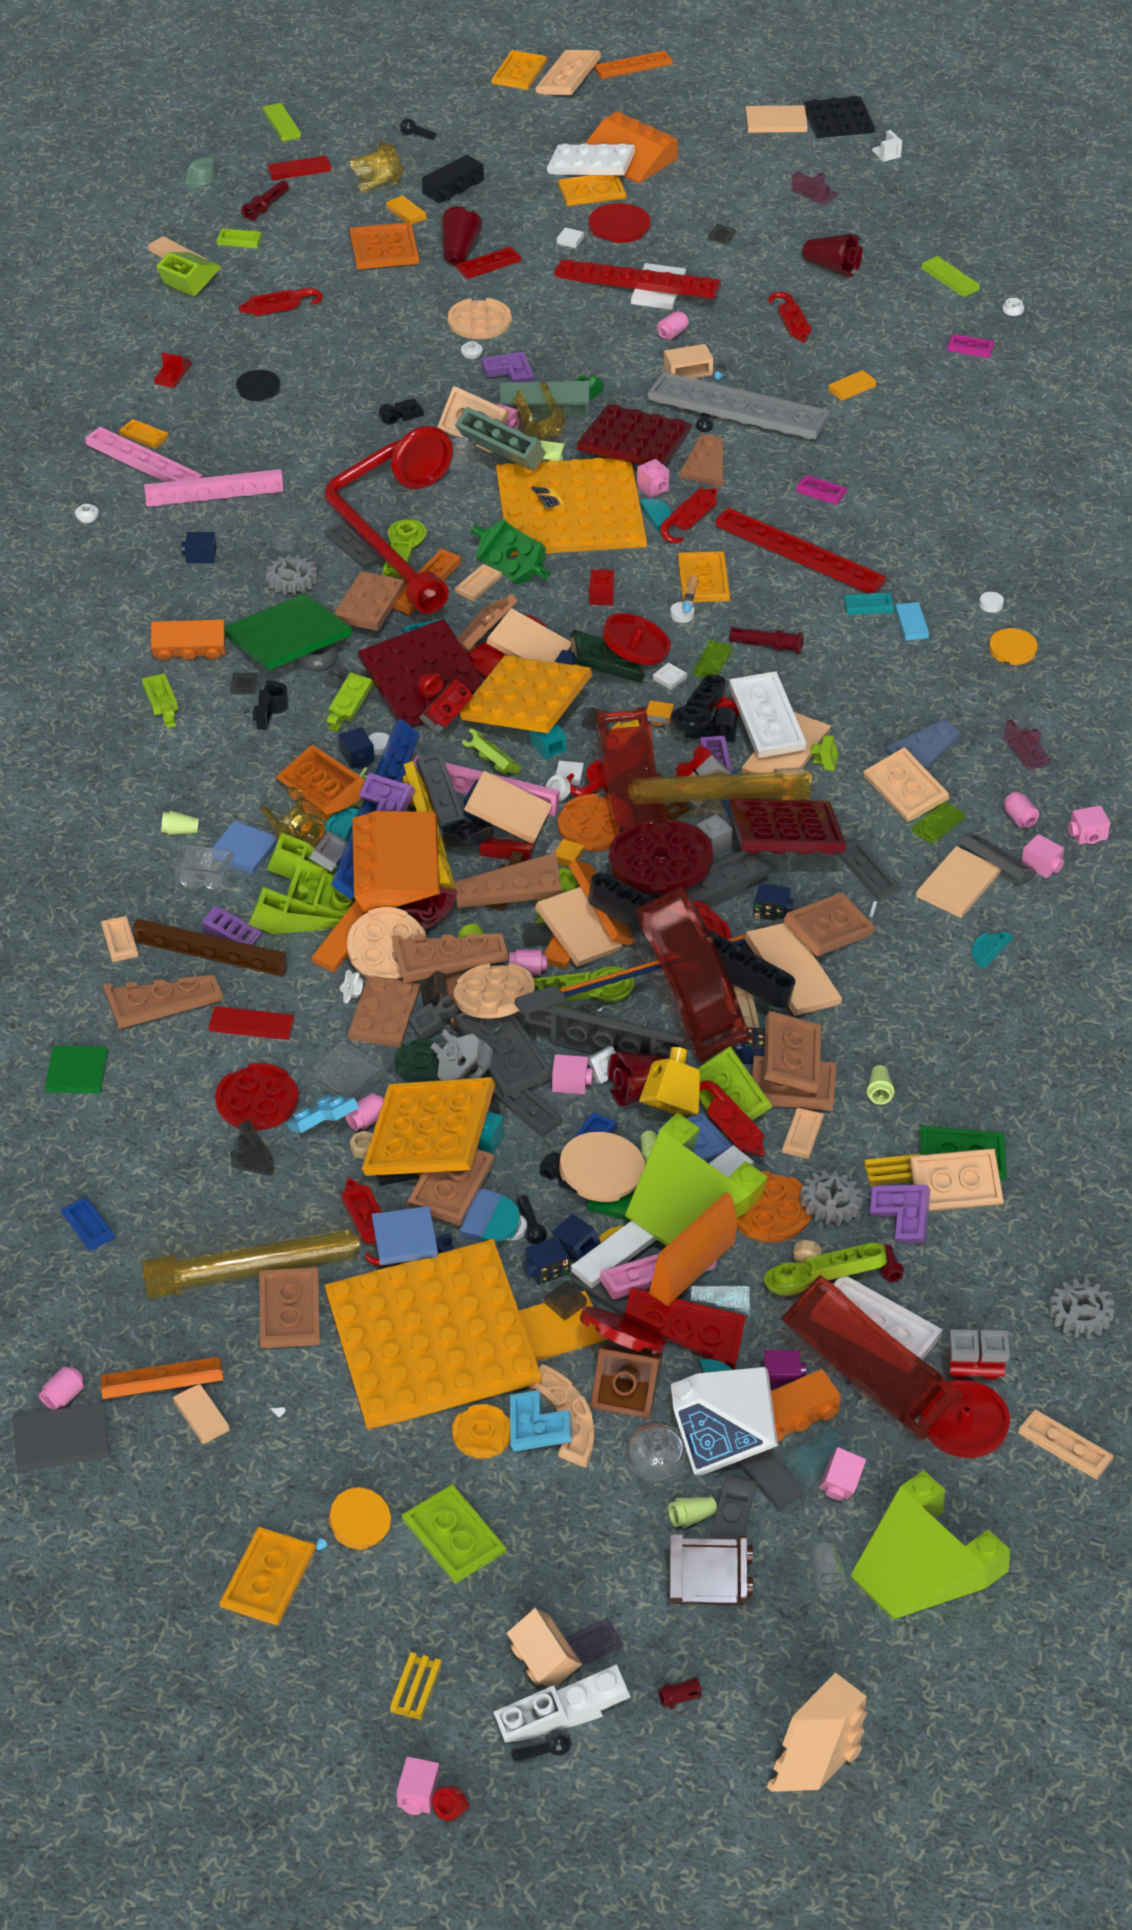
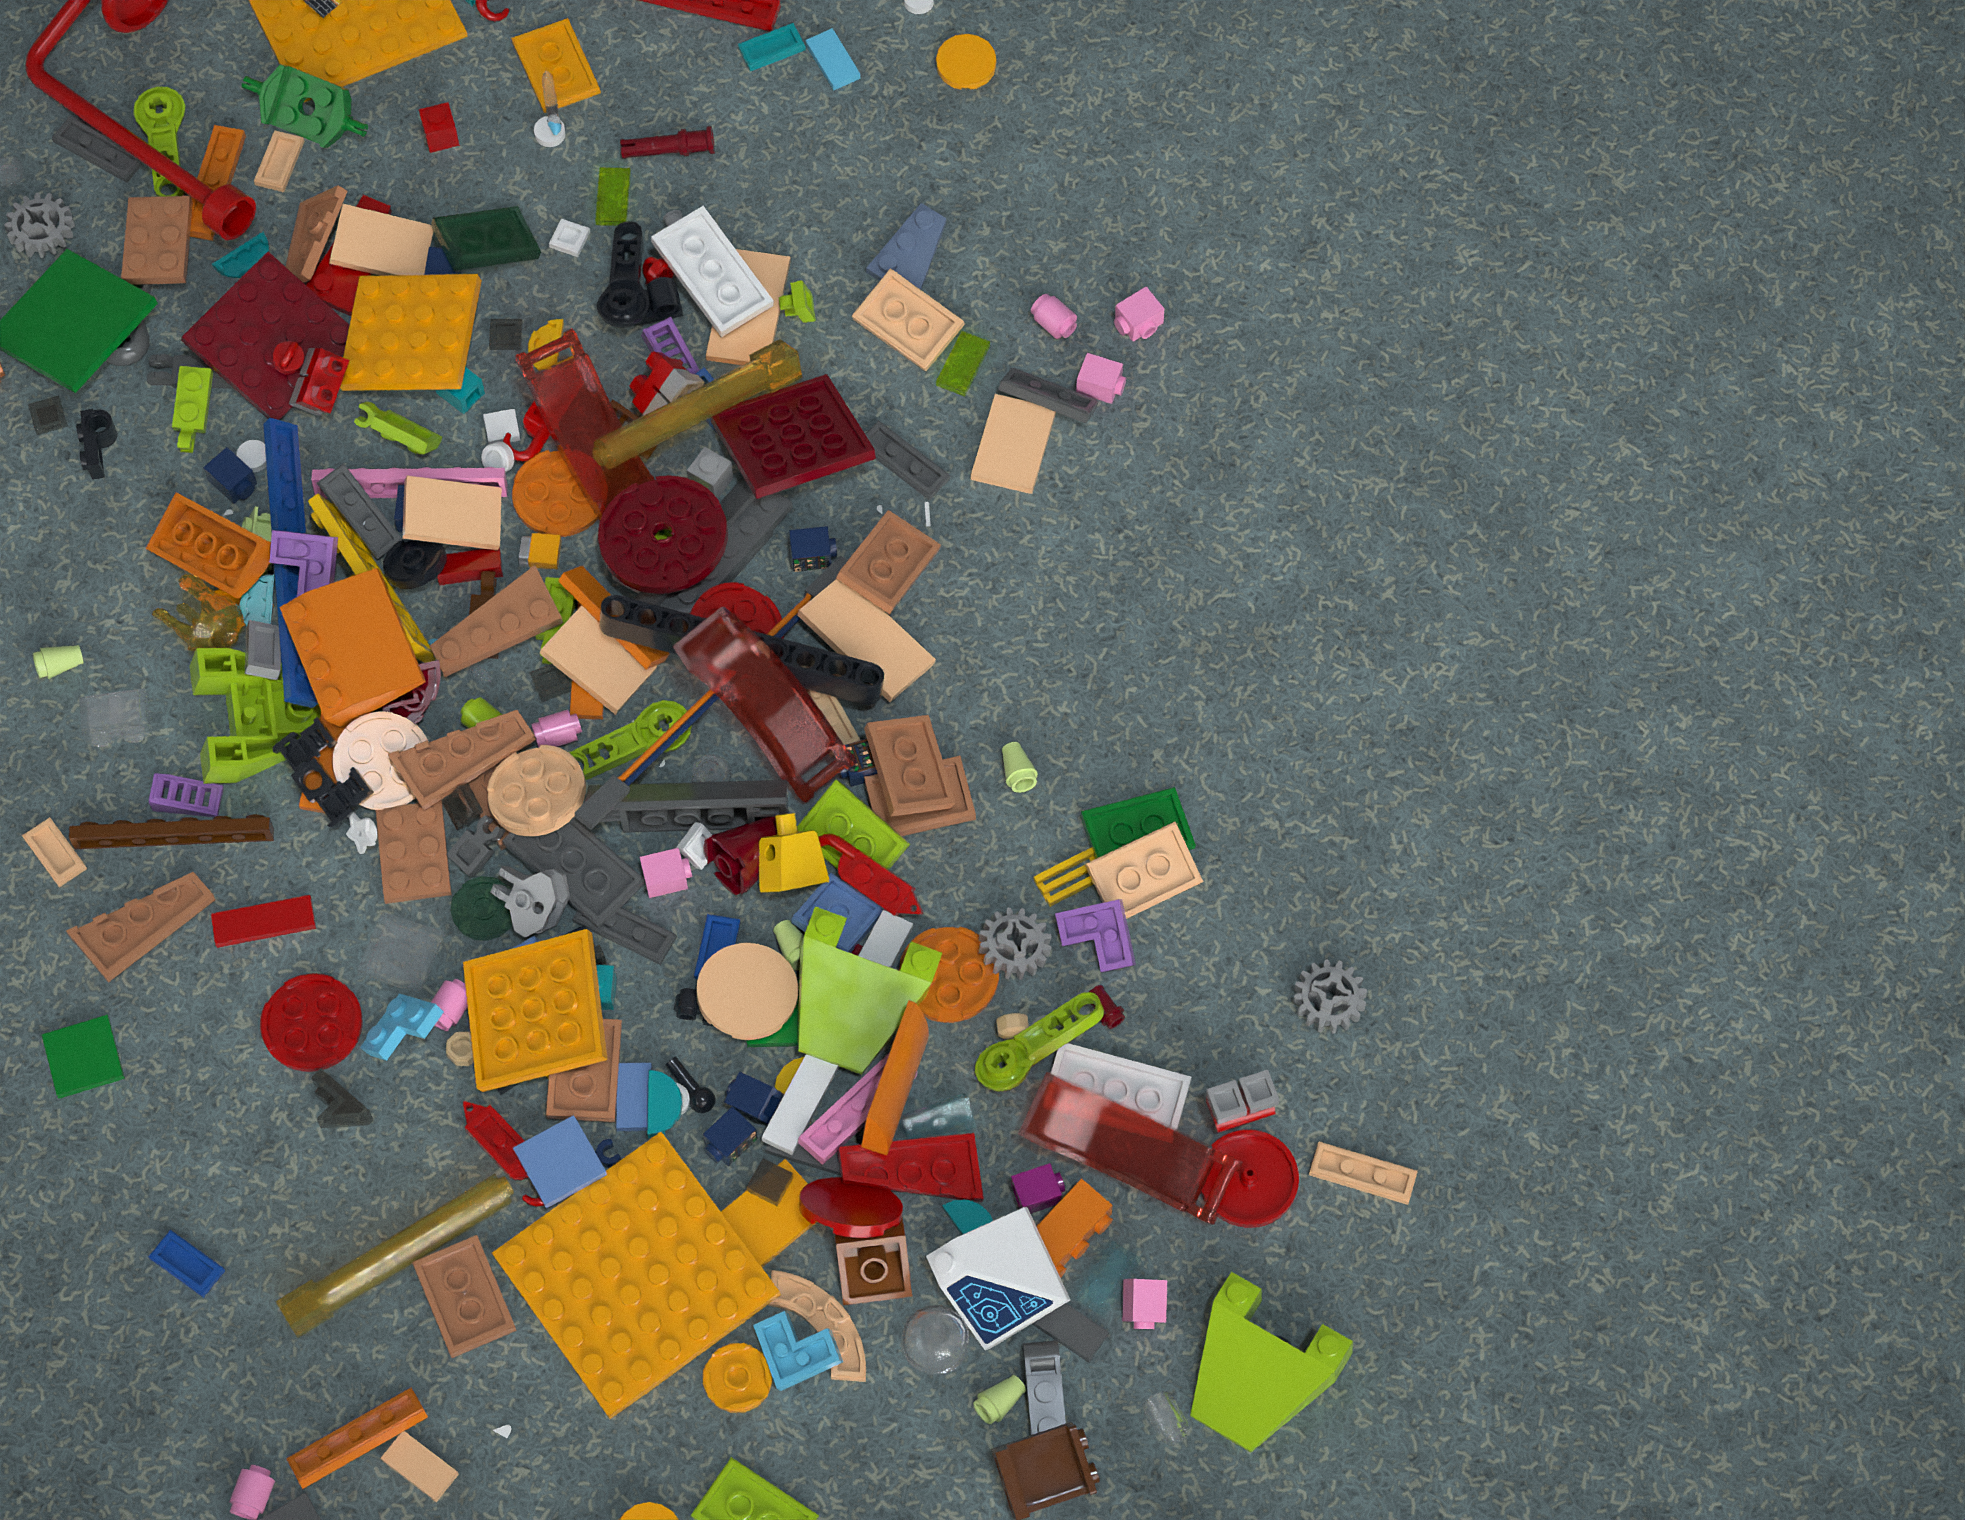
camera: 20 degrees left, 20 degrees up
(248, 845) = (152, 665): medium blue tile -> none
(327, 926) = (299, 756): none -> black piece
(636, 639) = (510, 197): red piece -> none
(659, 713) = (578, 302): light orange piece -> none
(803, 1133) = (952, 861): light nougat tile -> none
(988, 947) = (1076, 528): teal tile -> none
(1026, 746) = (1030, 216): clear pink panel -> none

